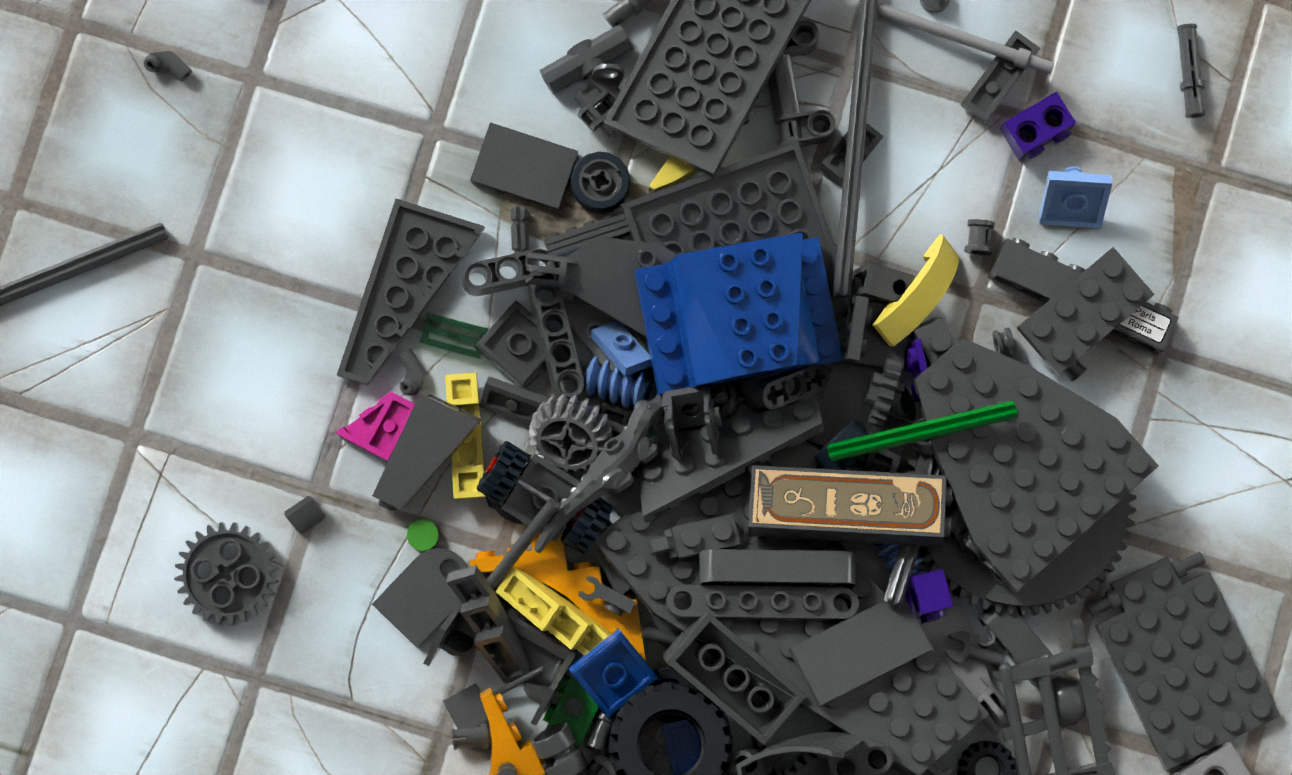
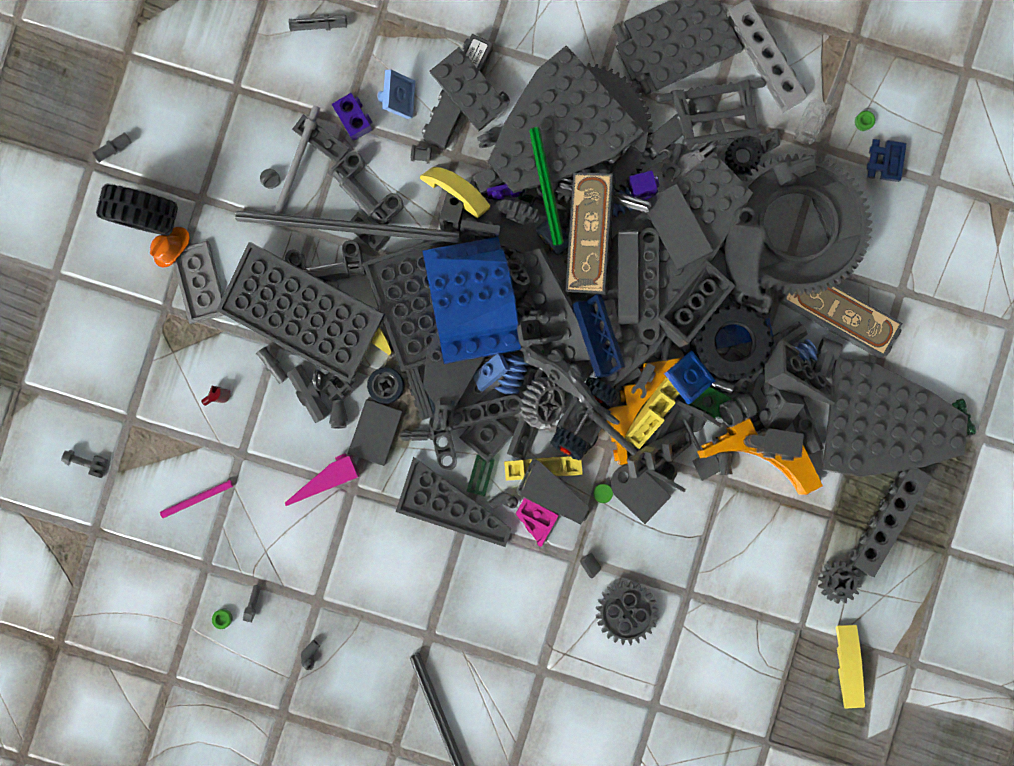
camera: 80 degrees left, 5 degrees up
(455, 100) = (336, 473): none -> dark pink slope
(552, 107) = (338, 415): none -> dark grey cone
(675, 513) = (596, 338): none -> dark blue fence
(910, 140) = (360, 194): none -> dark grey piece

